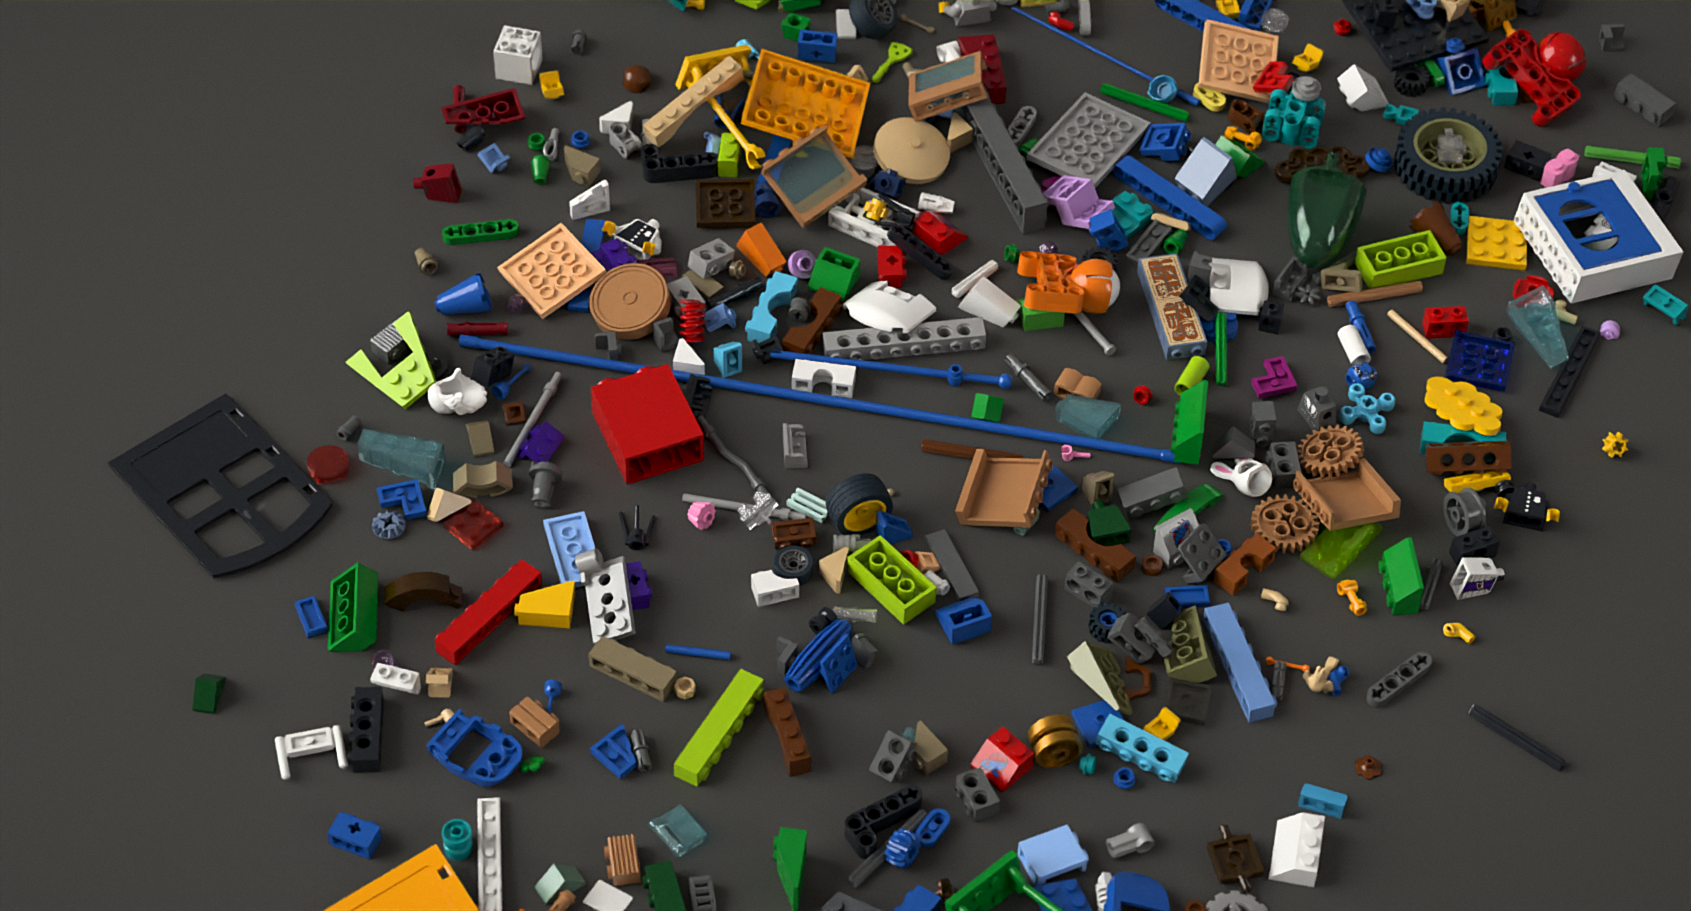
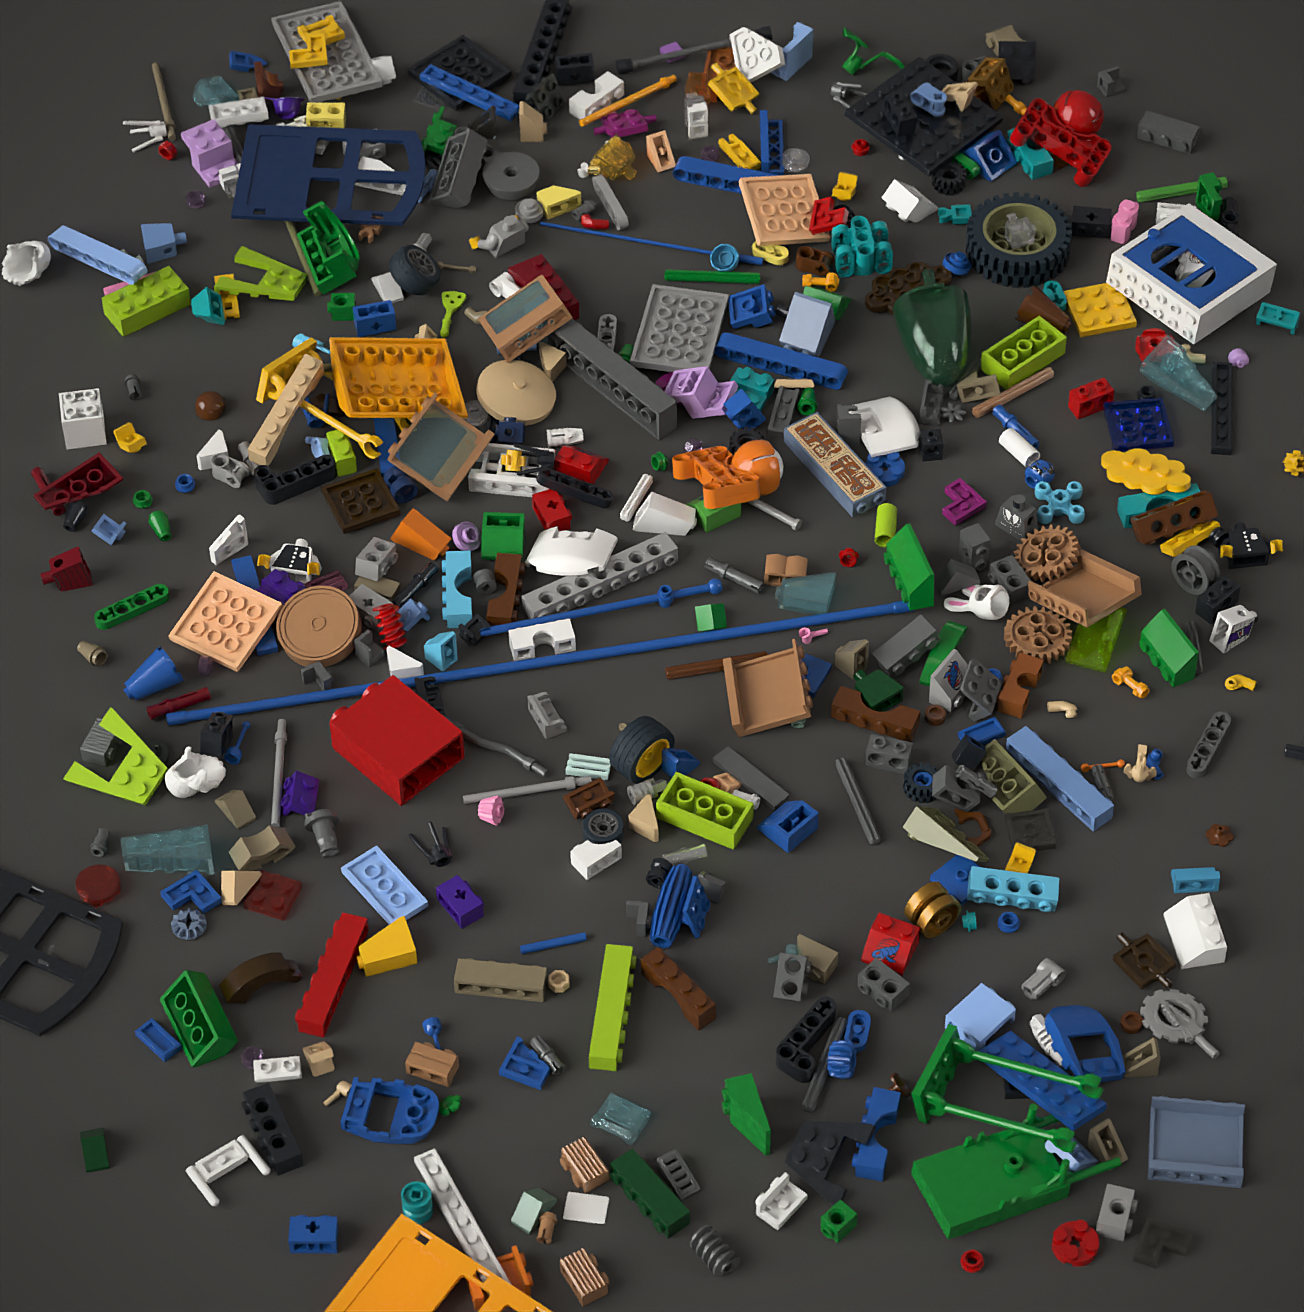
camera: 20 degrees left, 0 degrees up
(514, 413) = (257, 773): reddish brown slope -> none
(552, 141) = (158, 493): light grey piece -> none
(581, 166) = (199, 509): dark tan slope -> none
(593, 572) = (420, 900): hinge -> none
(737, 269) = (405, 561): dark tan plate -> none
(759, 511) = (548, 789): clear hips -> none
(1194, 296) = (856, 448): black plate -> none
(1221, 349) = (900, 489): green axle -> none
(1306, 88) = (866, 216): light grey plate -> none
(1417, 336) = (1071, 420): tan bar -> none
(1455, 45) = (978, 133): blue plate -> none

